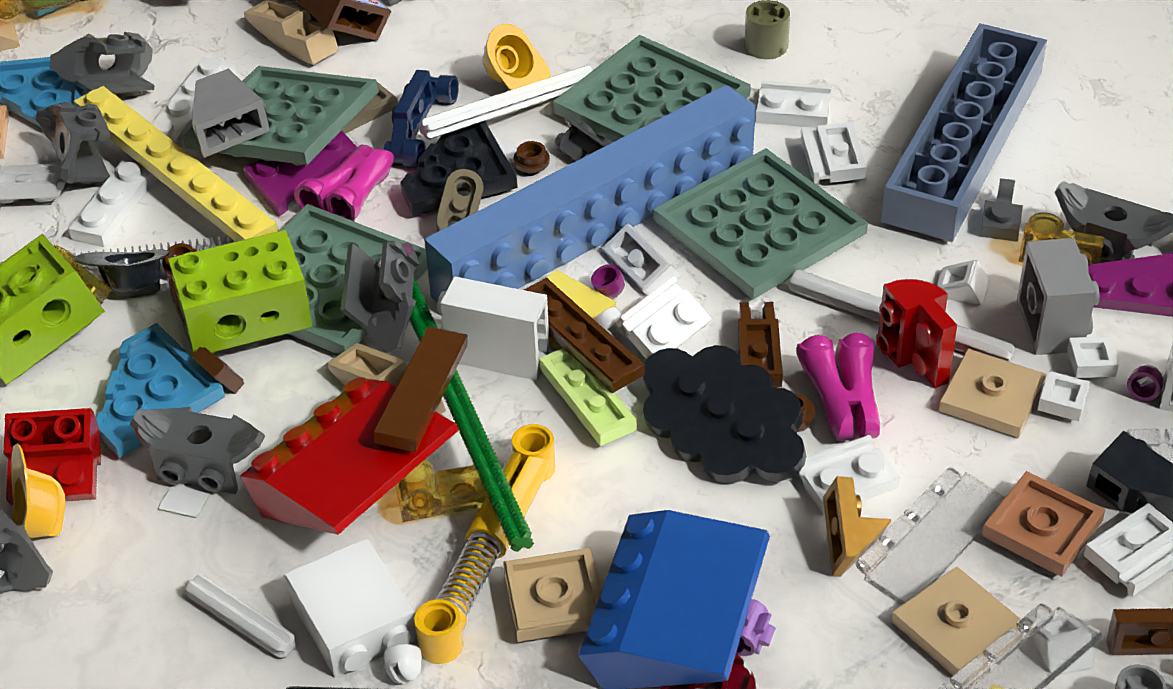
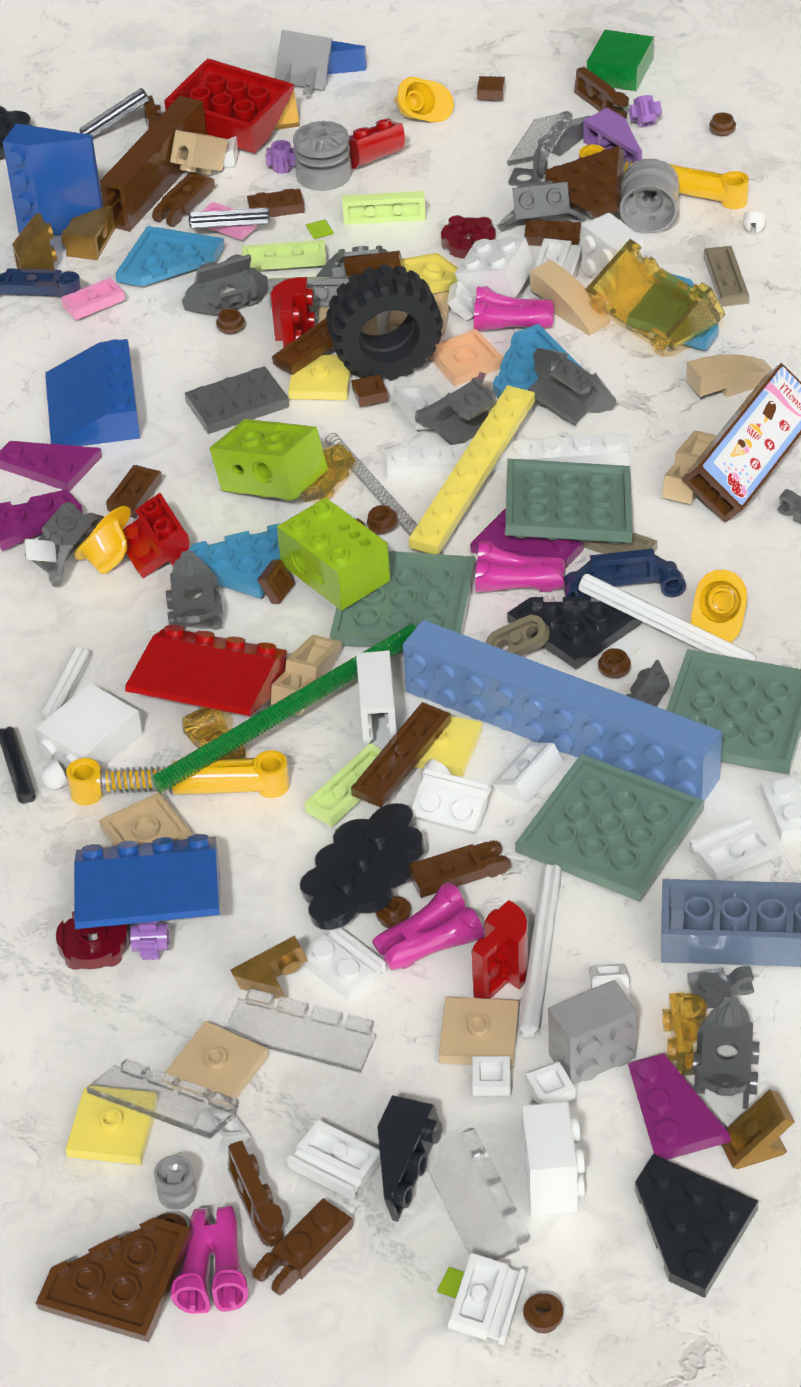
camera: 70 degrees right, 0 degrees up
(128, 272) = (351, 489): black piece -> none
(226, 113) = (528, 464): light grey slope -> none
(367, 282) = (379, 620): dark grey piece -> none
(420, 389) = (271, 677): reddish brown tile -> none
(608, 281) = (482, 756): magenta hinge -> none
(1043, 523) = (336, 1091): nougat plate -> none

